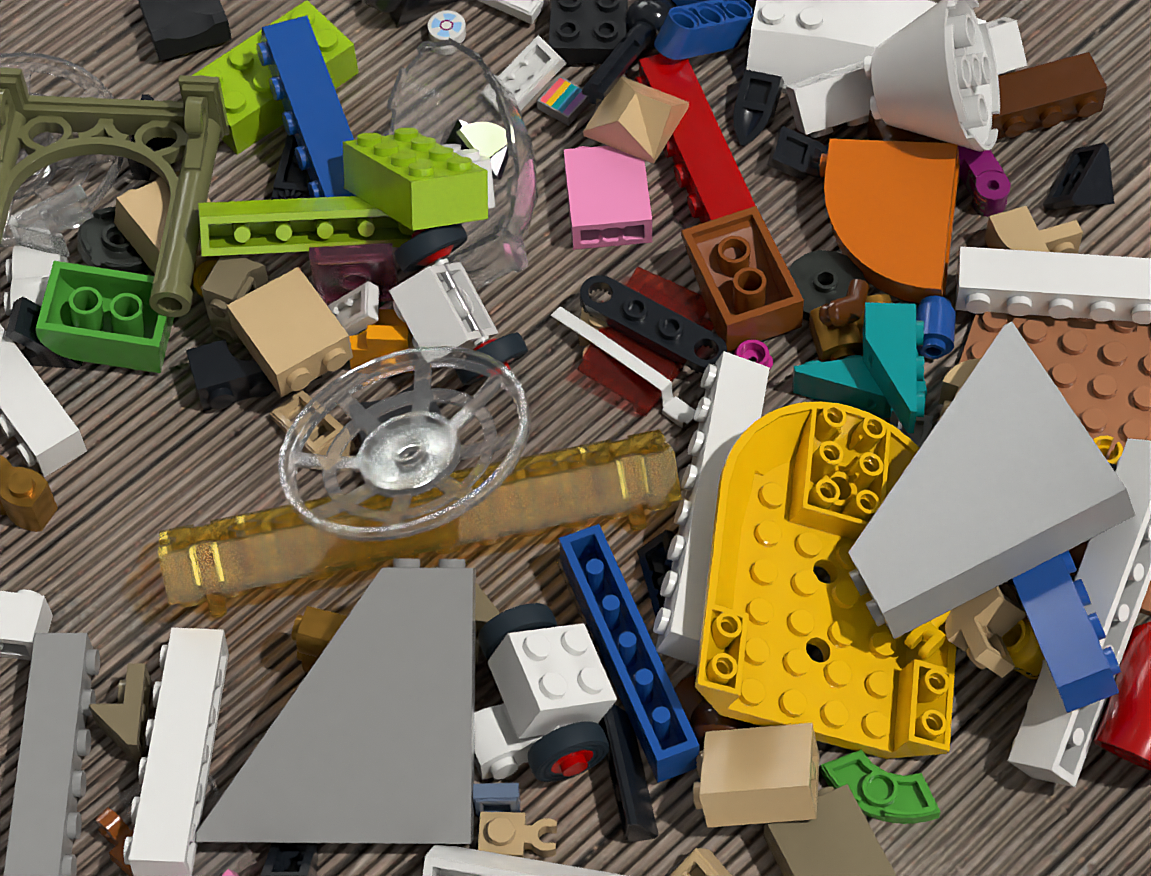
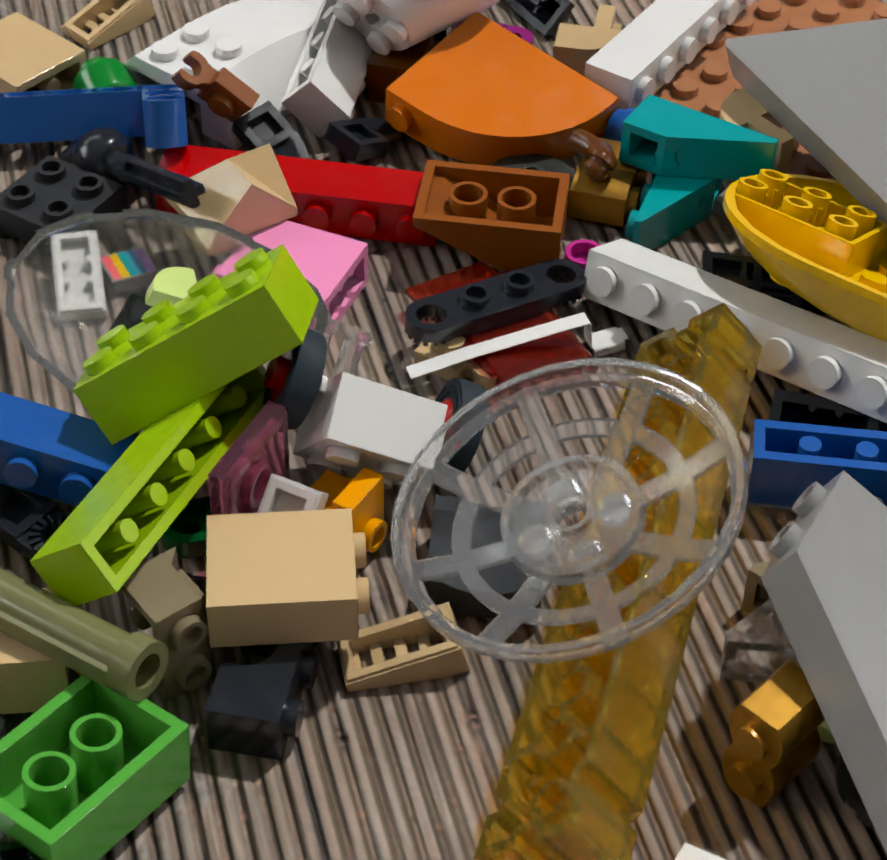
camera: 65 degrees left, 15 degrees down
(752, 47) = (220, 89): none -> dark orange plate

